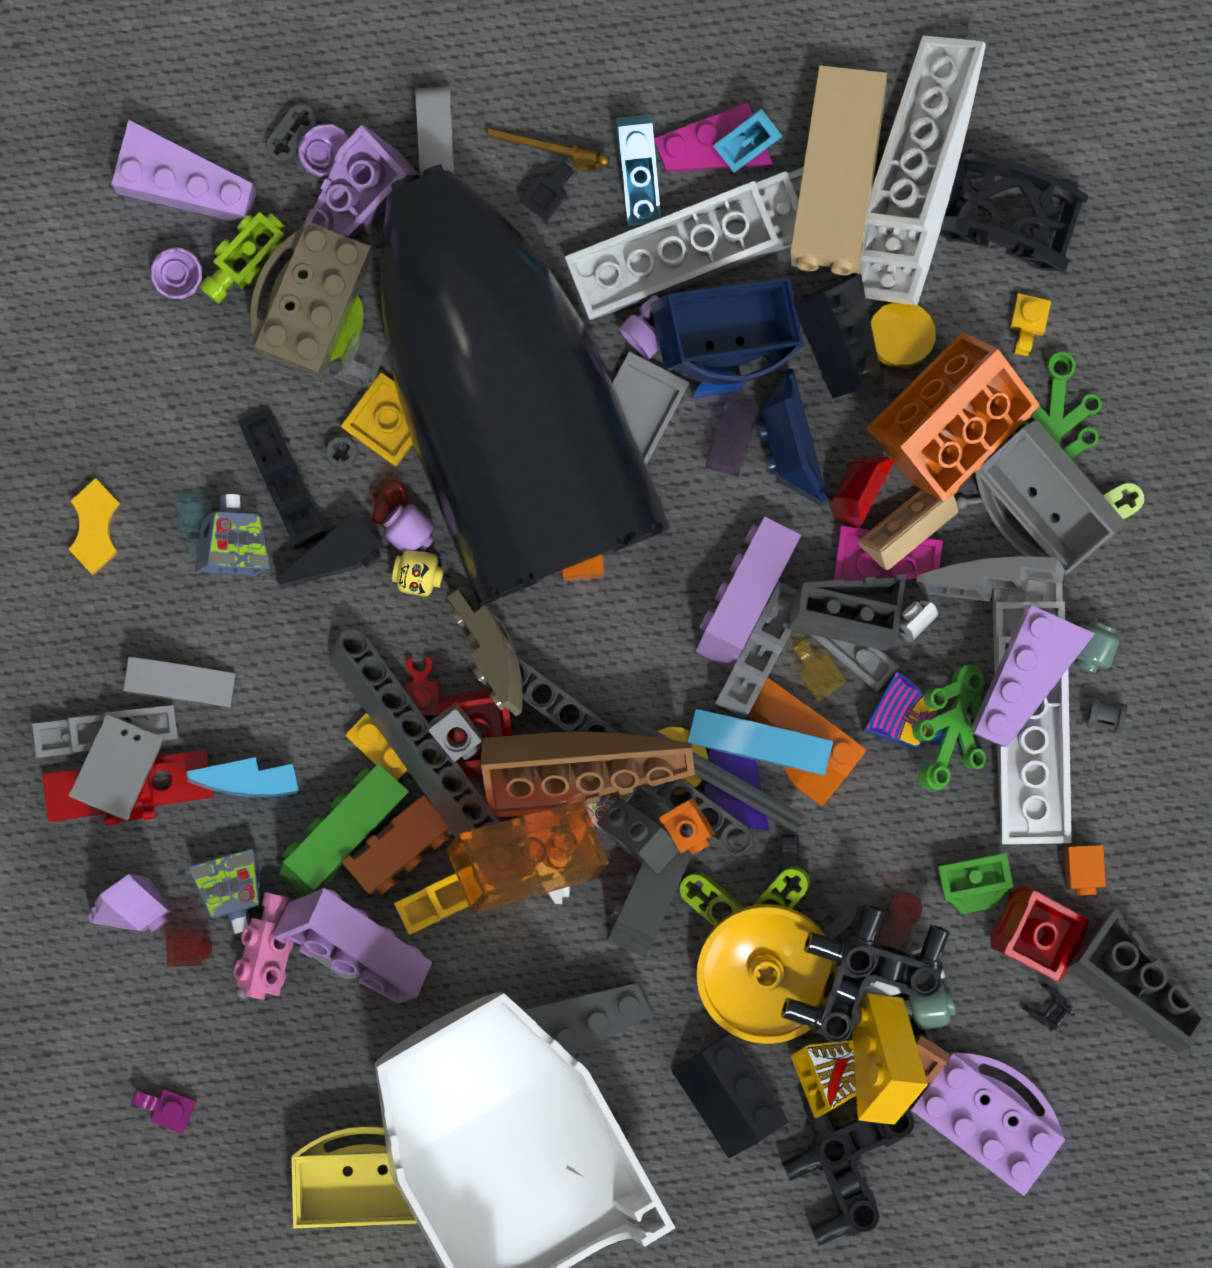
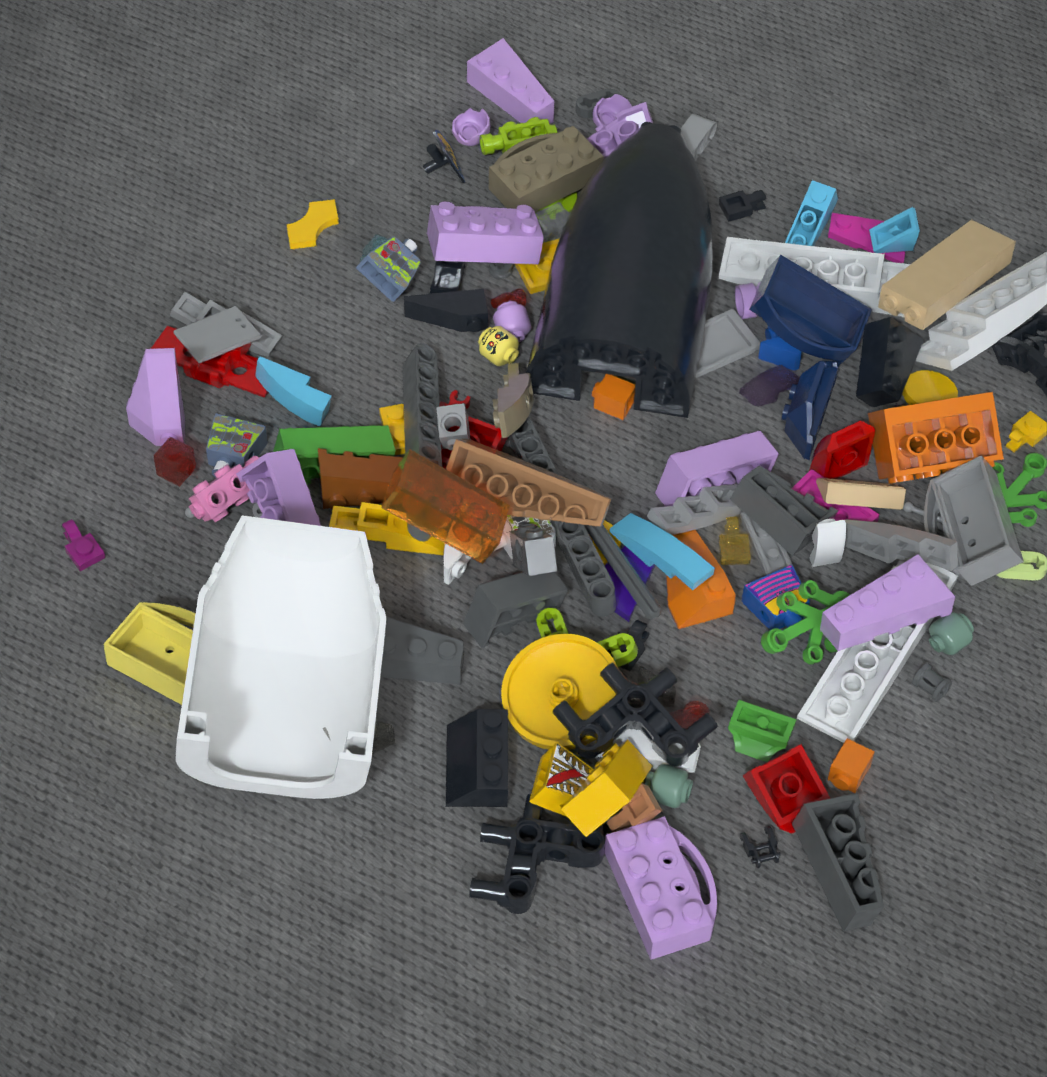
camera: 35 degrees right, 30 degrees down
(178, 336) = (442, 159): none -> black shield
(179, 682) = (294, 321): light grey slope -> none
(307, 439) = (484, 234): none -> lavender piece
(581, 158) = (777, 200): pearl gold sword -> none
(688, 813) = (572, 556): orange brick -> none

